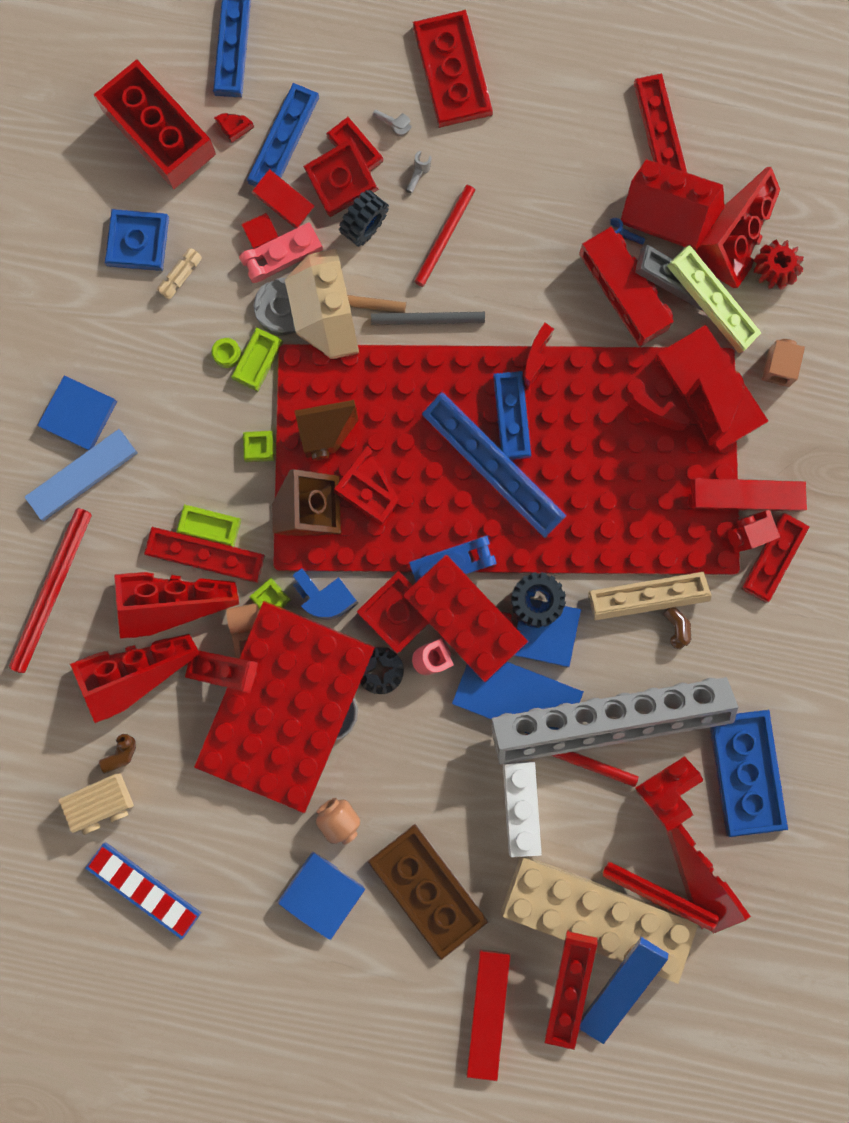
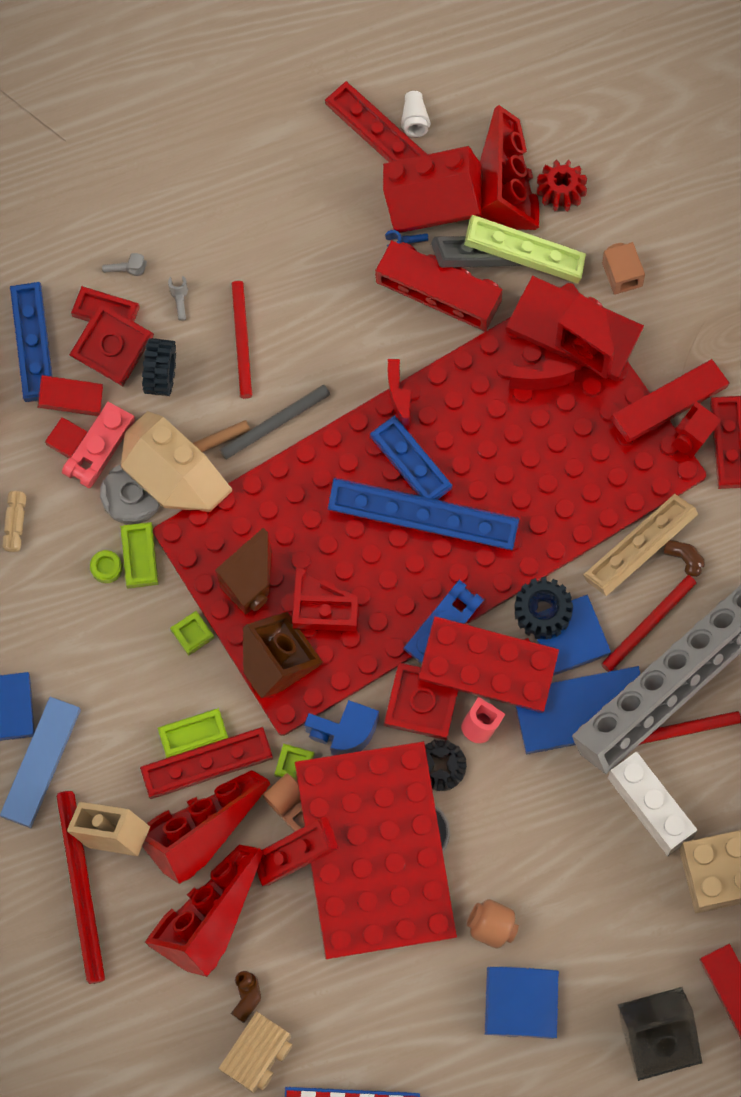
camera: 30 degrees left, 10 degrees down
(92, 561) = (108, 828): none -> tan brick
(411, 989) = (660, 1033): none -> clear smoke slope
(428, 891) = (617, 937): reddish brown tile -> none
(452, 68) = (150, 187): red tile -> none
(614, 662) = (648, 623): none -> red bar
(697, 136) = (415, 117): none -> white cone

